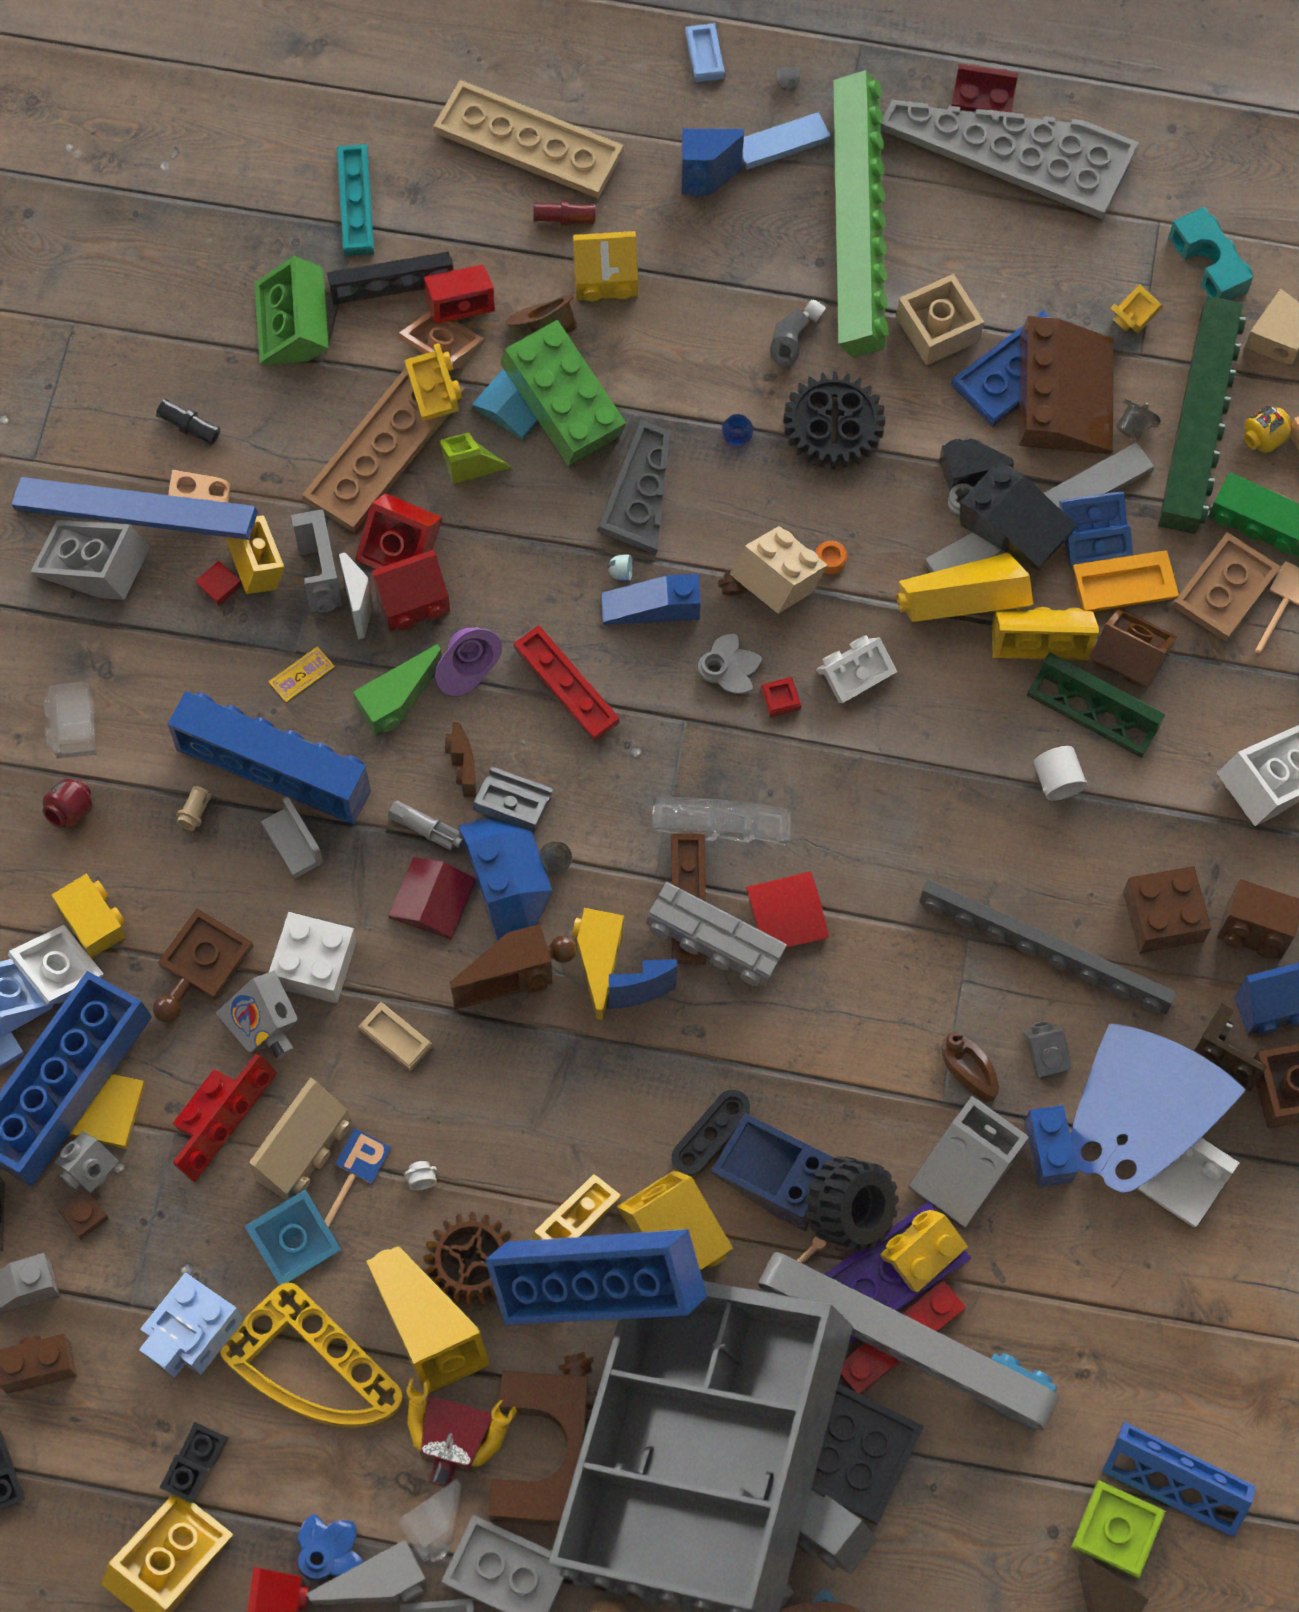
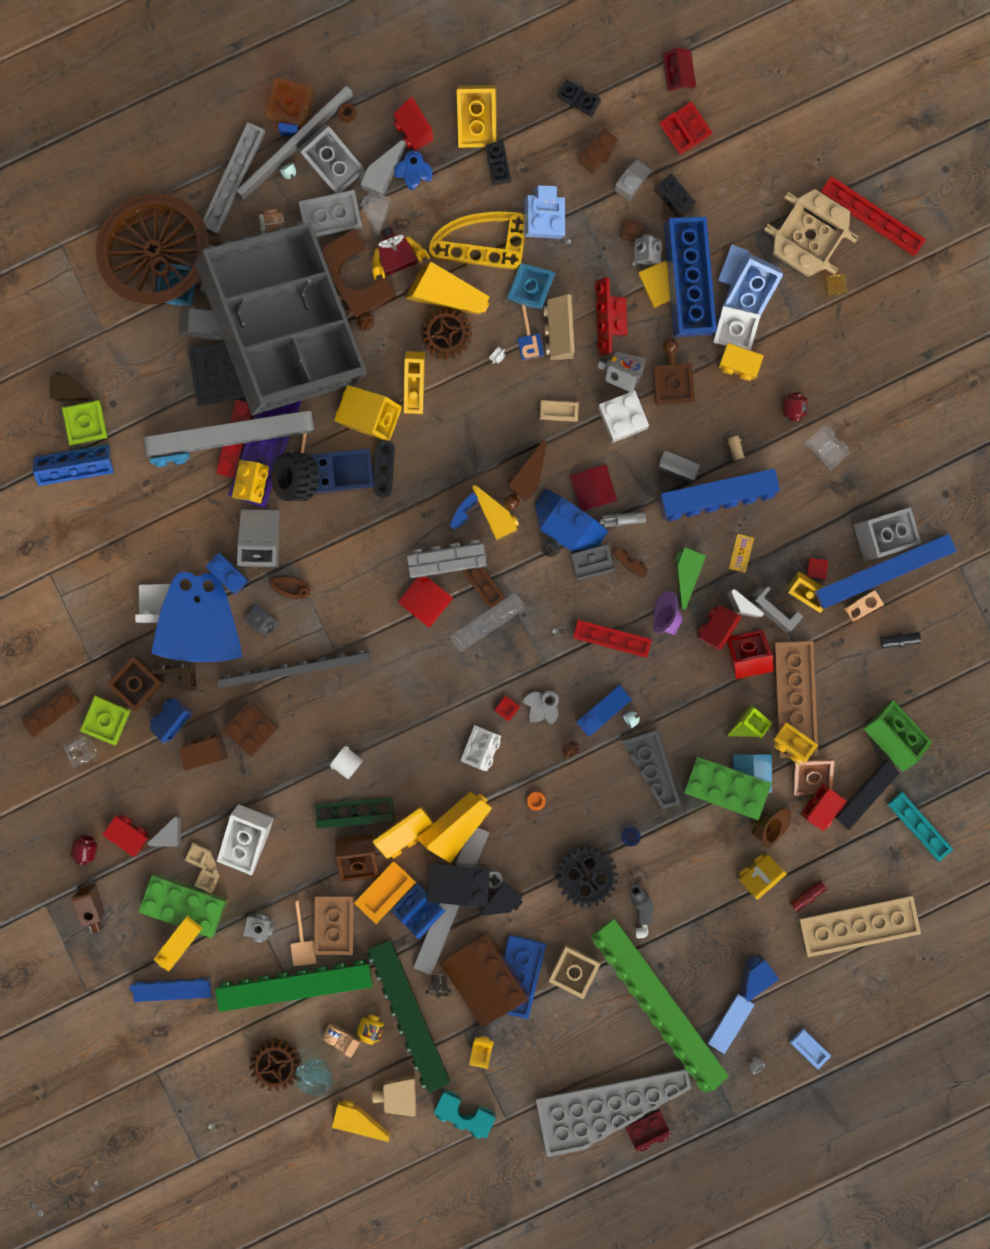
camera: 145 degrees right, 20 degrees up
(597, 1277) = (376, 351): blue brick -> none
(778, 569) = (552, 769): tan brick -> none

